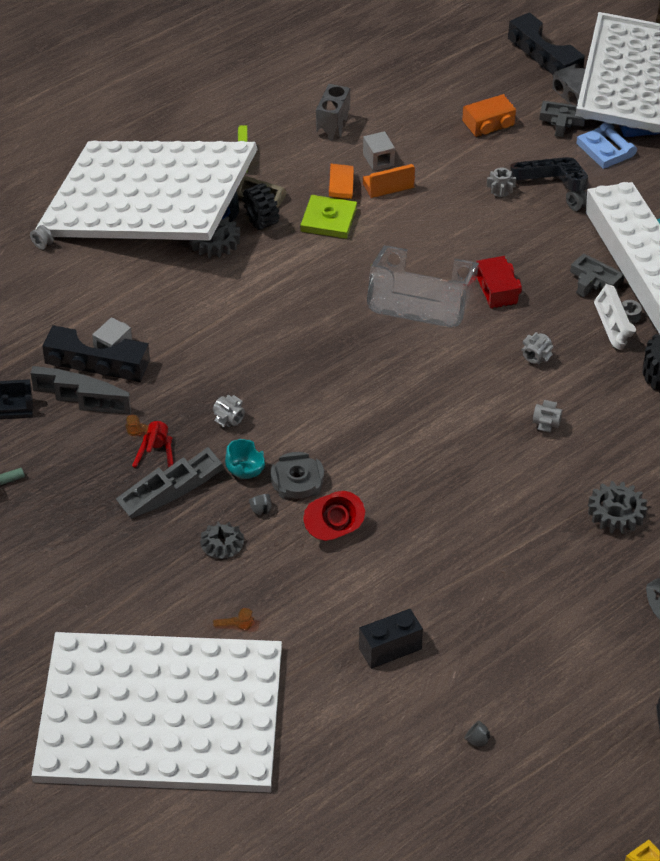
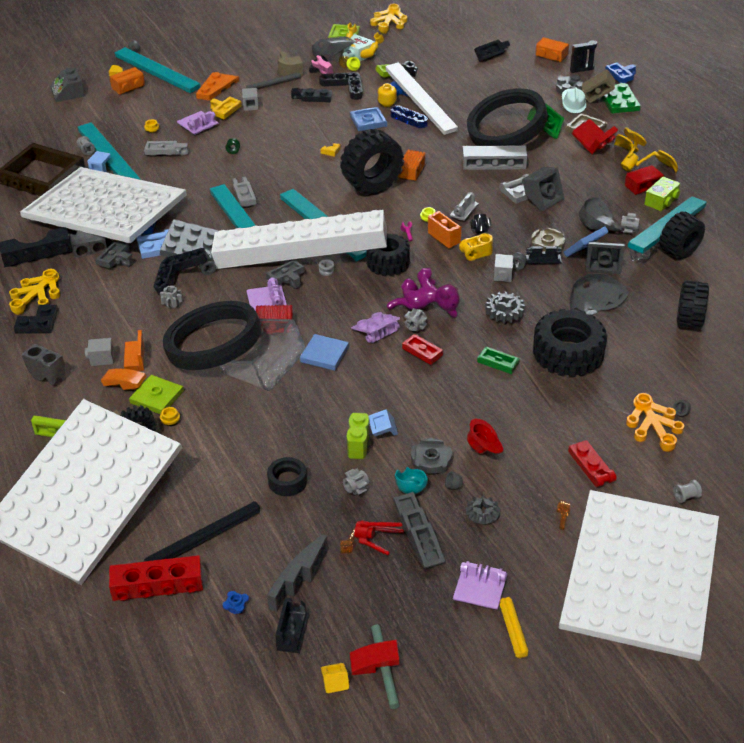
camera: 75 degrees left, 5 degrees down
(32, 353) = (235, 607): none -> blue plate
(41, 237) = (93, 577): light grey bush -> none
(44, 592) = (513, 627): none -> yellow axle
(48, 283) = (155, 578): none -> red brick
(100, 552) = (480, 585): none -> lavender hinge
(111, 334) = (246, 543): light grey brick -> none
(122, 306) = (206, 532): none -> black axle
(125, 360) = (245, 575): black arch -> none
(226, 365) = (287, 464): none -> black tyre
(294, 234) = (169, 416): none -> yellow plate
(306, 398) = (358, 435): none -> lime brick
(306, 747) = (687, 491): none -> light grey bush
(331, 642) = (591, 463): none -> red plate
(333, 418) = (382, 422): none -> light blue panel
(390, 638) = (600, 431): black brick -> none
(418, 94) = (41, 323): none -> black plate
(424, 252) = (218, 355): none -> black tyre
(439, 702) = (644, 403): none -> light orange plant
(457, 343) = (324, 352): none -> medium blue tile
(489, 115) = (95, 288): orange brick -> none
(493, 75) = (49, 277): none -> yellow plant
(495, 435) = (422, 349): none -> red plate
(504, 535) = (498, 360): none -> green tile
(524, 382) = (377, 326): none -> lavender hinge
(537, 348) = (350, 312): light grey gear -> none
(541, 268) = (268, 295): none -> lavender hinge
(557, 610) = (569, 358): none -> black tyre
(598, 414) = (445, 296): none -> magenta animal
(614, 317) = (332, 272): white plate -> none
(618, 163) = (187, 237): none -> plate

